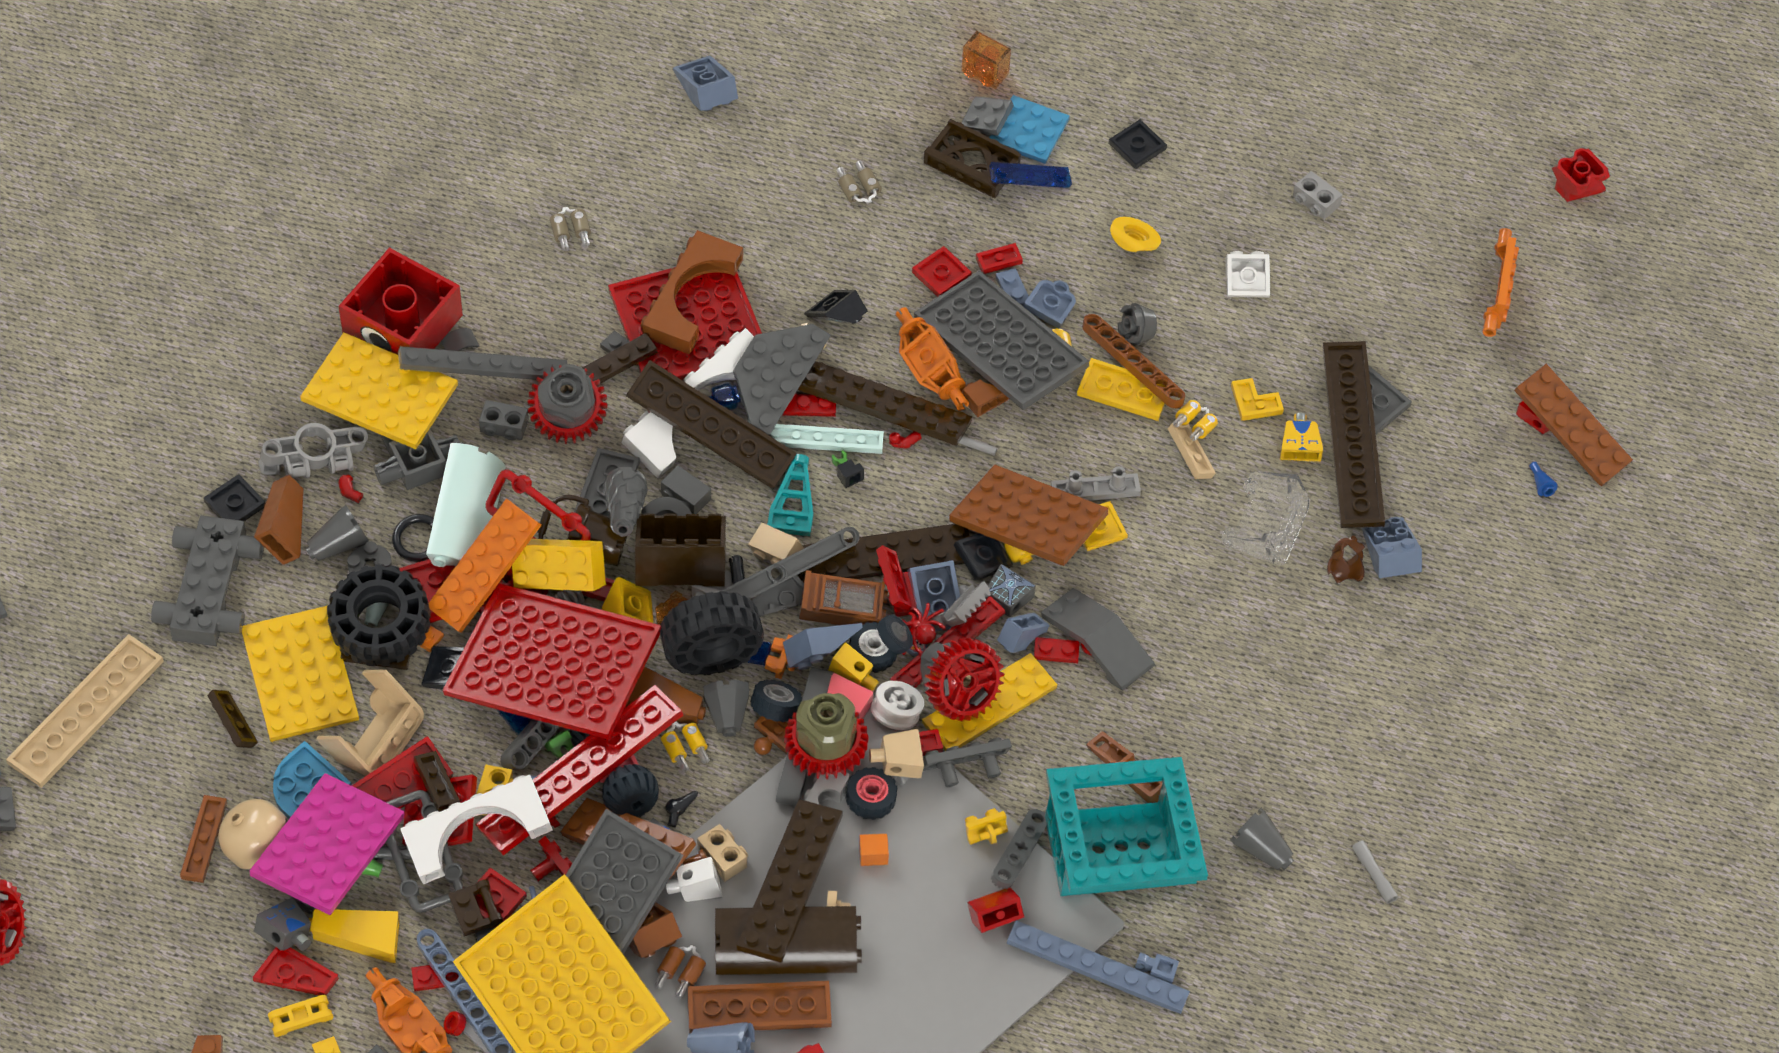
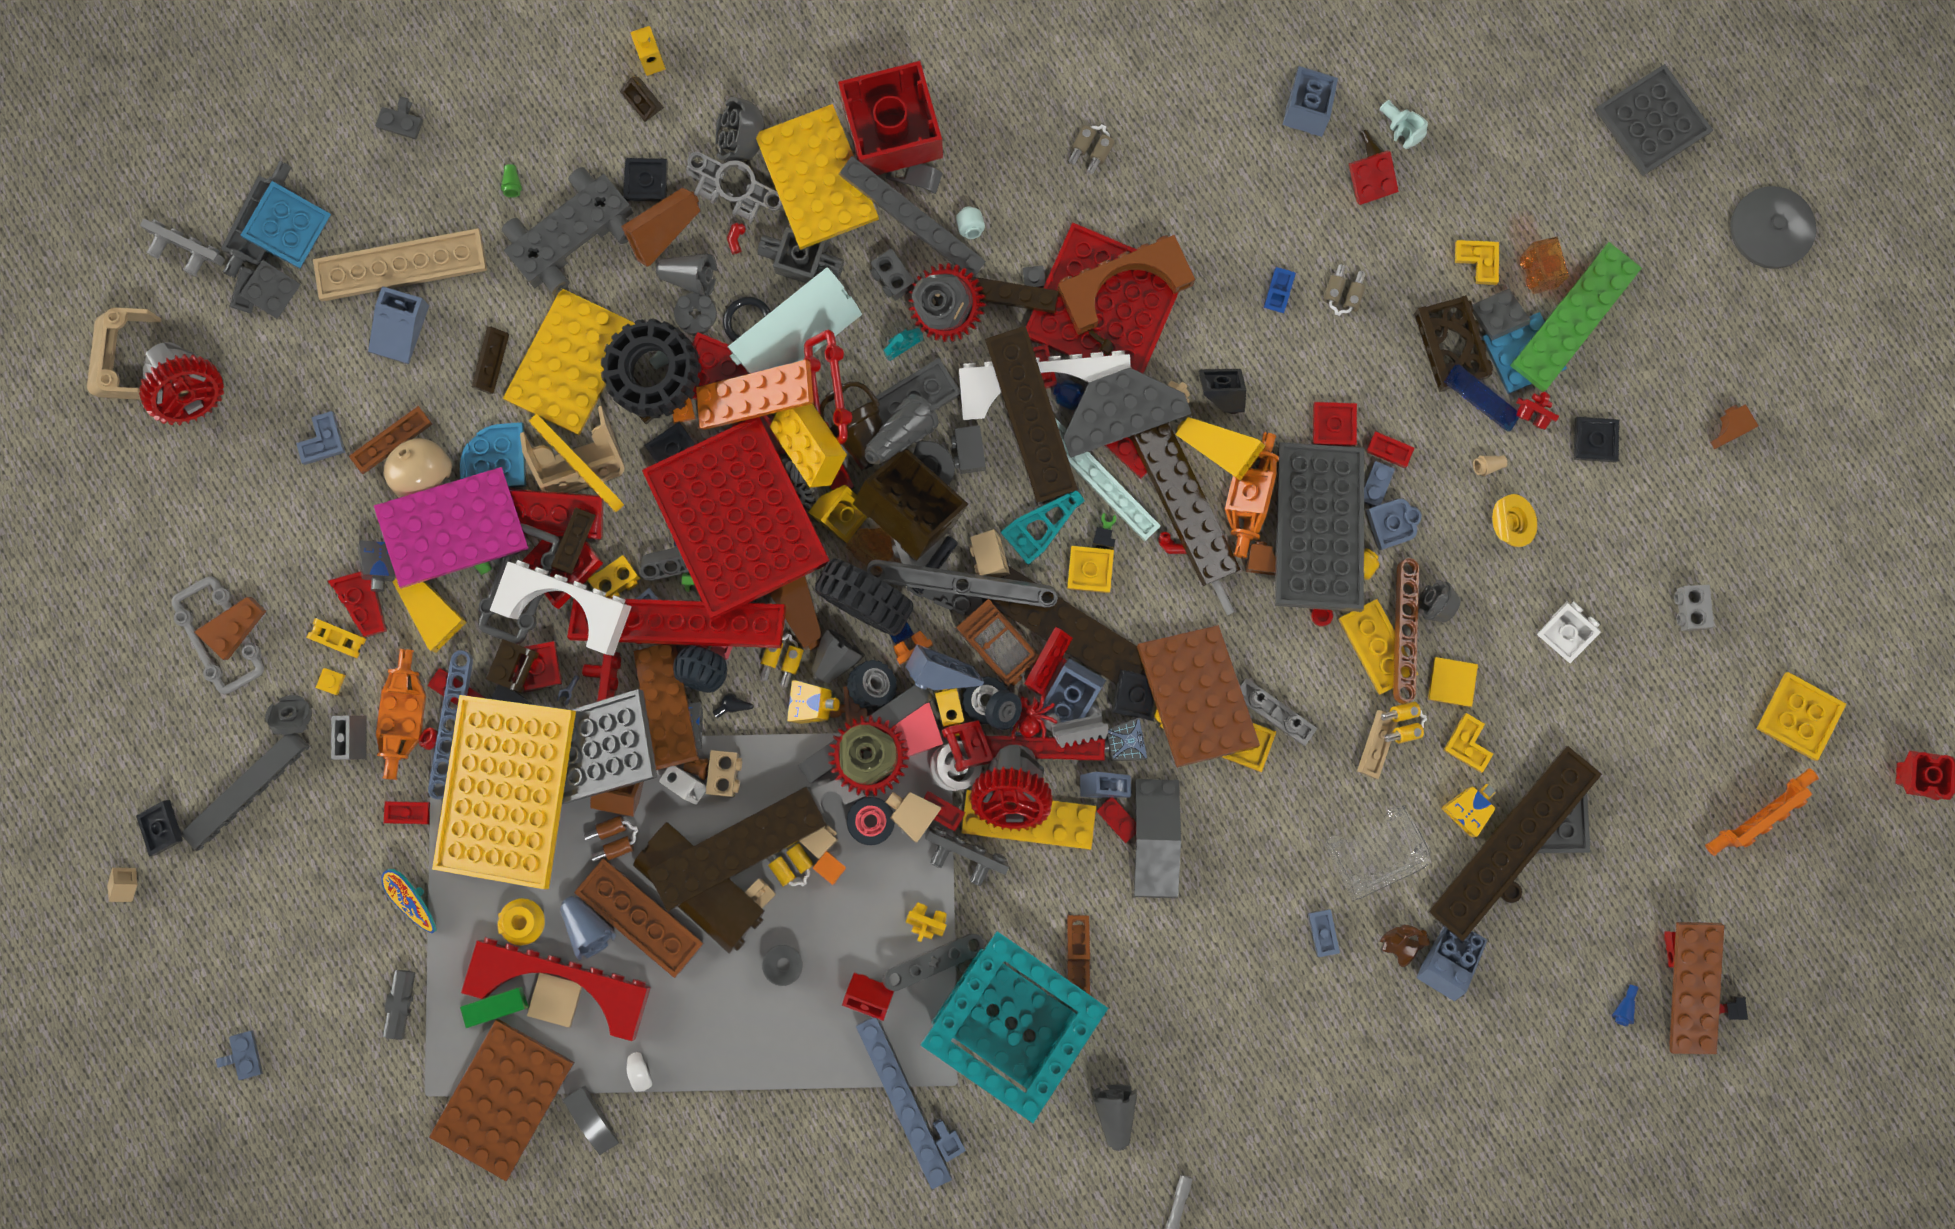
camera: 45 degrees right, 25 degrees up
(122, 584) = (510, 183): none -> bright green cone
(127, 750) = (397, 324): none -> sand blue slope
(148, 410) = (646, 48): none -> yellow torso
(149, 883) = (326, 444): none -> sand blue plate
(172, 452) = (641, 98): none -> dark brown slope
(279, 399) = (747, 122): none -> dark grey cylinder
(393, 725) = (576, 463): none -> yellow beam
(528, 342) = (970, 222): none -> light aqua head
(558, 458) = (902, 342): none -> teal plate
(718, 341) = (1106, 346): none -> dark brown hand
(741, 750) = (810, 703): none -> yellow torso
(788, 81) = (1371, 145): none -> dark brown cone
(792, 46) = (1406, 124): none -> light aqua piece
(804, 95) = (1373, 177): none -> red plate
(809, 218) = (1279, 290): none -> blue slope
(841, 883) = (782, 870): none -> yellow piece
(846, 839) = (820, 841): none -> tan slope
(860, 501) = (1090, 569): none -> yellow plate
(876, 341) = (1224, 447): none -> yellow slope
(893, 678) = (973, 742): none -> red plate
(907, 935) = (772, 971): none -> dark grey piece
(937, 89) = (1484, 255): none -> yellow plate
(1041, 78) = (1575, 317): none -> bright green plate
(1063, 402) = (1321, 617): none -> red tile
(1077, 151) = (1543, 416): none -> red hips
(1077, 217) = (1488, 464): none -> tan cone
(1201, 372) = (1452, 682): none -> yellow tile
(1222, 63) = (1734, 424): none -> dark orange arch
(1283, 603) = (1323, 933): none -> sand blue plate
(1387, 471) = (1512, 893): none -> dark brown plate
(1460, 207) = (1801, 716): none -> yellow plate
(1615, 419) = (1735, 1009): none -> black piece

